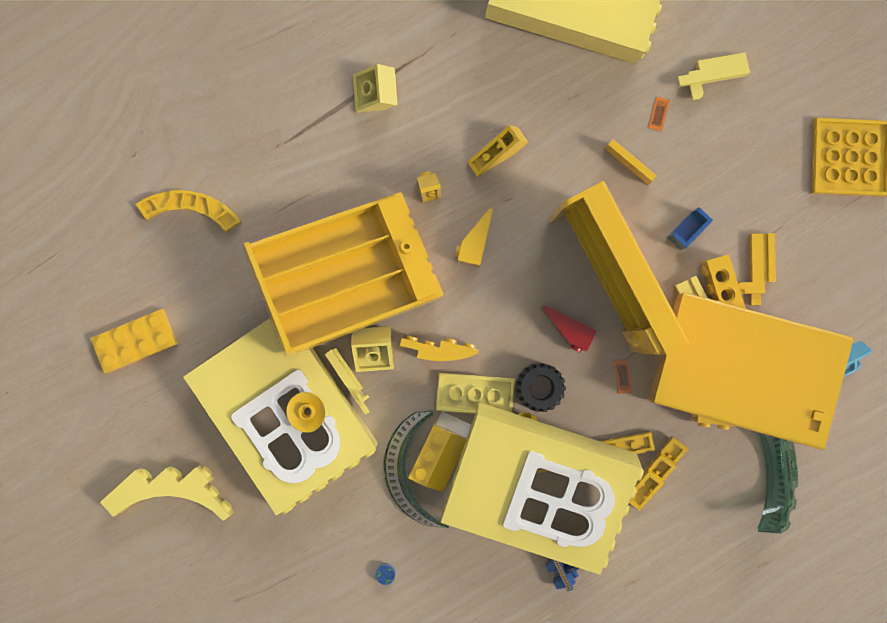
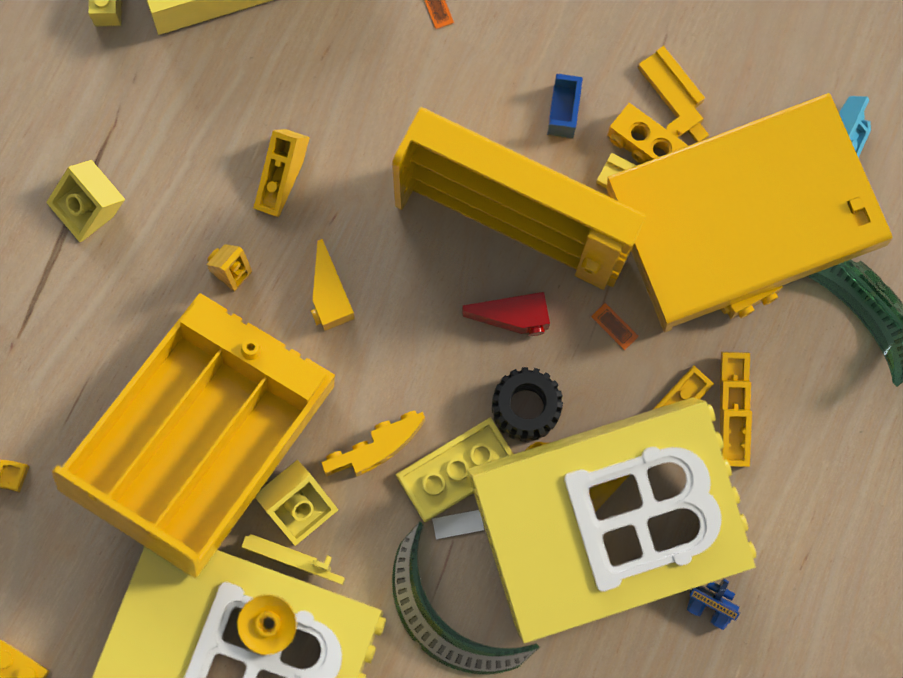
camera: 35 degrees left, 10 degrees down
(437, 458) = (467, 576): yellow slope -> none
(630, 162) = (442, 79): yellow tile -> none

